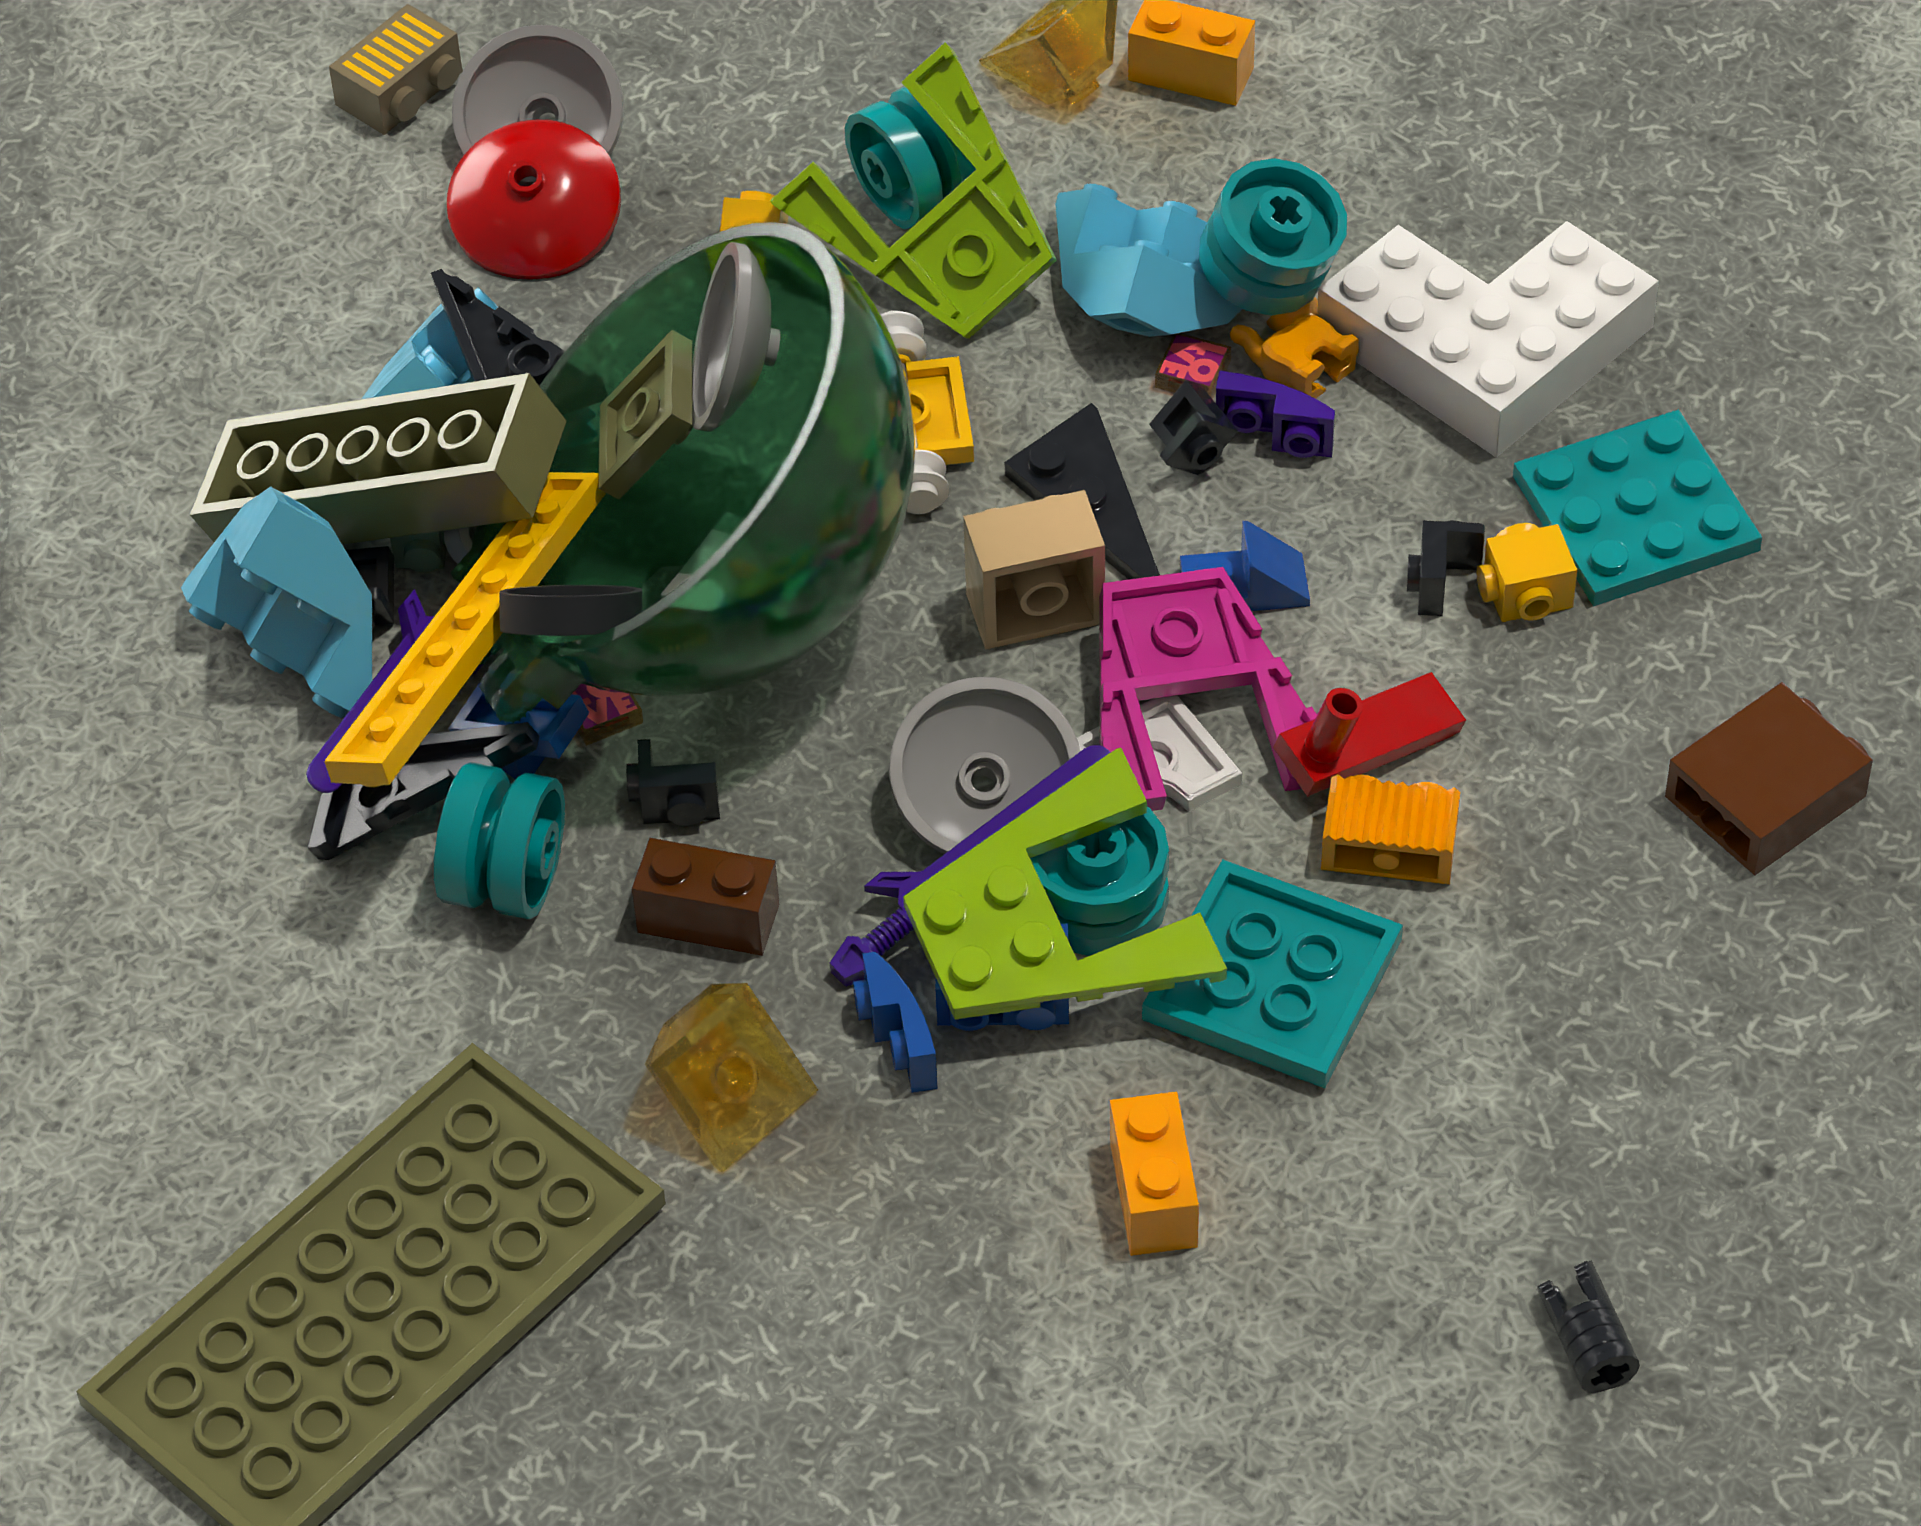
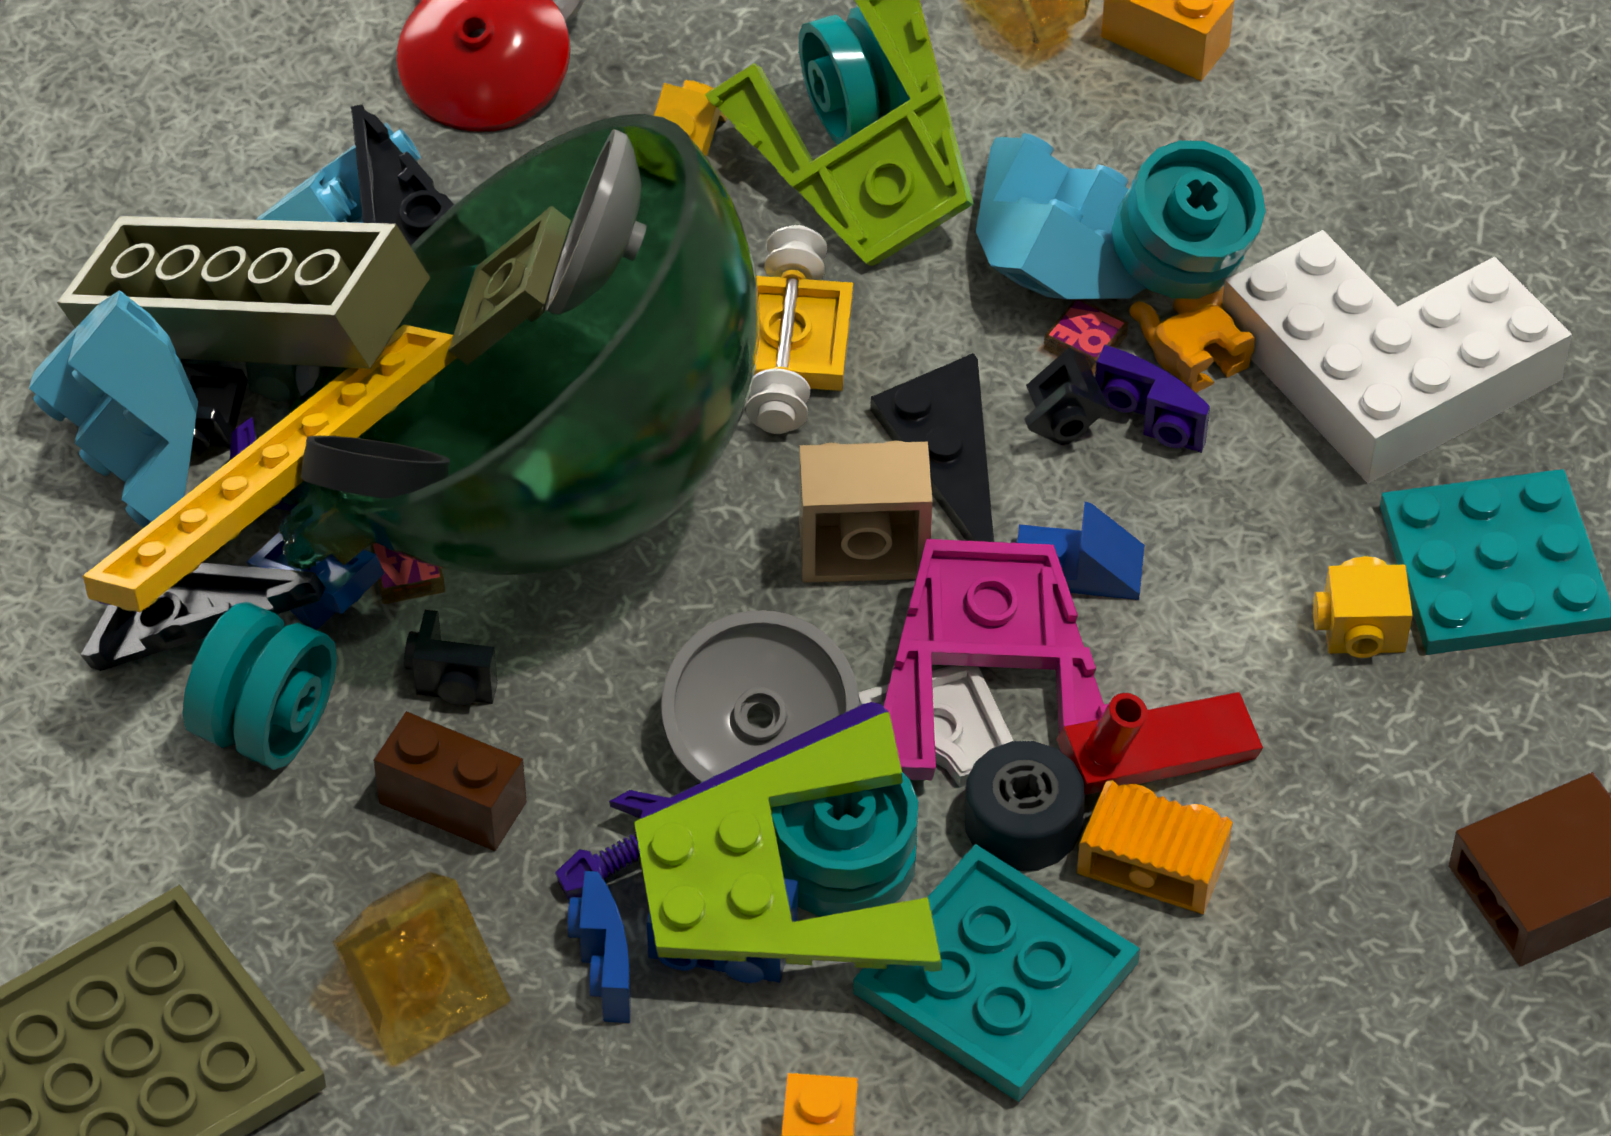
camera: 10 degrees right, 0 degrees up
(1258, 813) = (1024, 804): none -> black wheel
(1442, 547) = (1282, 565): black bracket -> none

